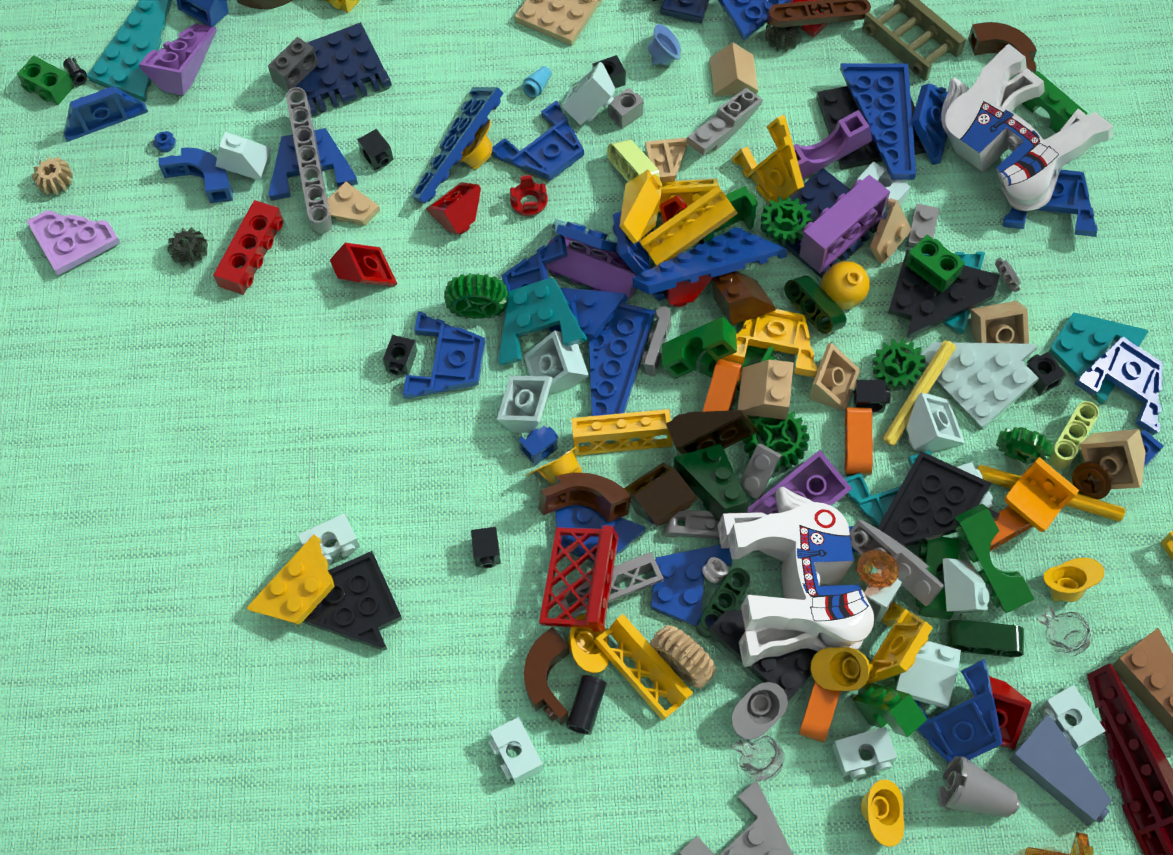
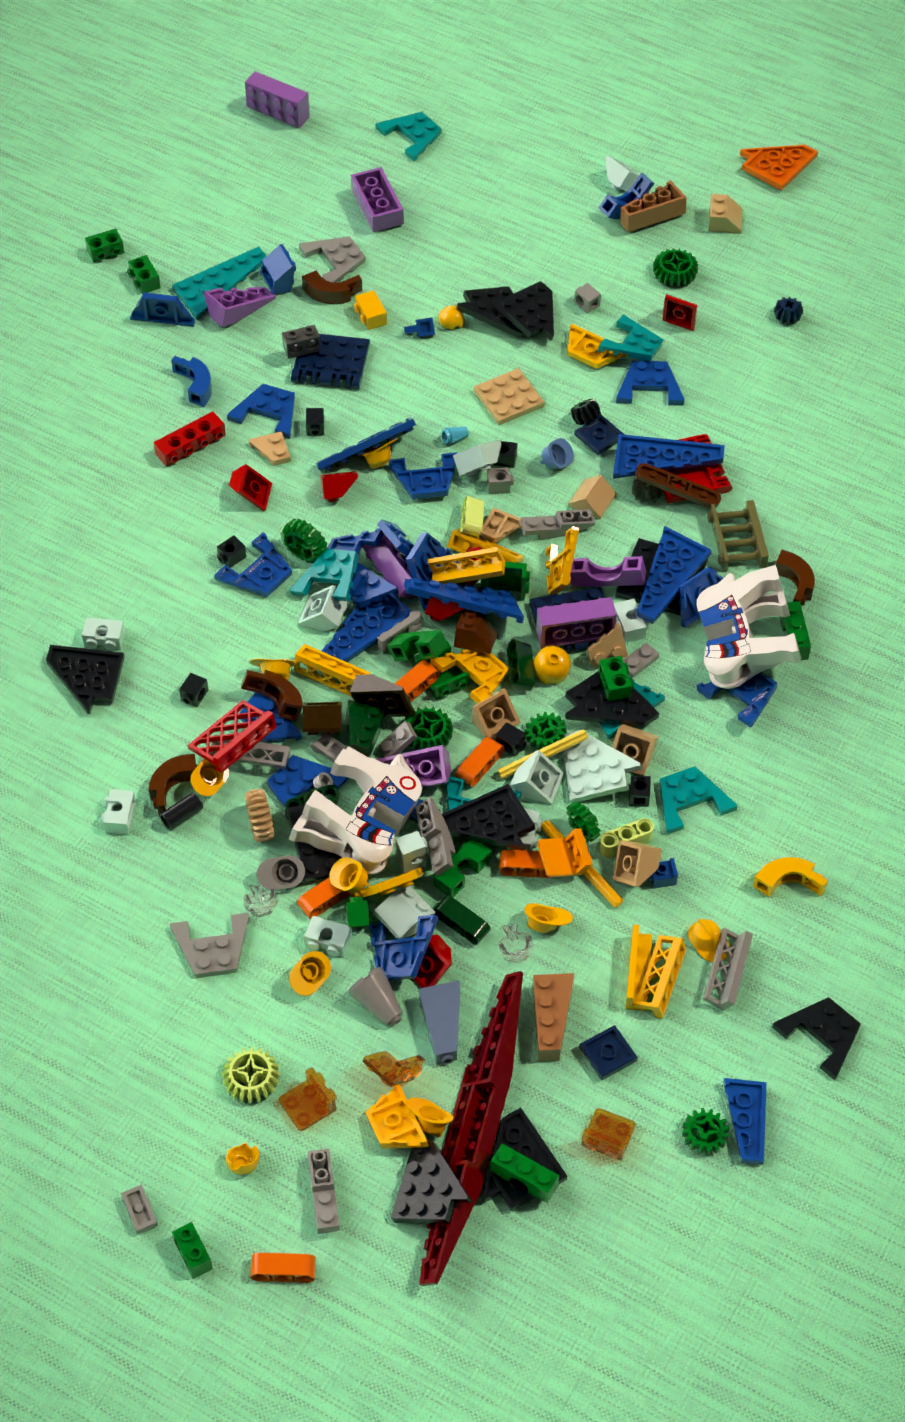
camera: 30 degrees right, 10 degrees down
(52, 175) = (104, 334): tan gear -> none
(71, 238) = (87, 377): lavender plate -> none
(76, 74) = (166, 280): black pin -> none
(166, 145) = (188, 349): blue plate -> none
(187, 247) = (152, 419): clear smoke gear -> none
(242, 156) = (227, 380): light aqua slope -> none
(296, 586) = (63, 645): yellow wing -> none
(310, 168) = (265, 405): light grey beam -> none
(524, 402) = (282, 619): light aqua slope -> none
(525, 188) = (391, 496): red piece -> none
(539, 444) = (275, 648): blue brick -> none
(640, 205) = (447, 540): yellow wedge -> none
(647, 664) = (237, 808): yellow fence -> none
(766, 389) = (441, 694): tan slope -> none
(786, 219) = (539, 598): green gear -> none
(877, 559) = (420, 823): clear orange gear -> none
(964, 587) = (466, 875): light aqua slope -> none
(979, 530) = (499, 845): green arch -> none
(1008, 274) = (667, 717): light grey gear -> none
(1072, 704) = (475, 1007): light aqua brick -> none
(1087, 487) = (611, 875): reddish brown gear -> none
(1132, 372) = (700, 821): wing -> none

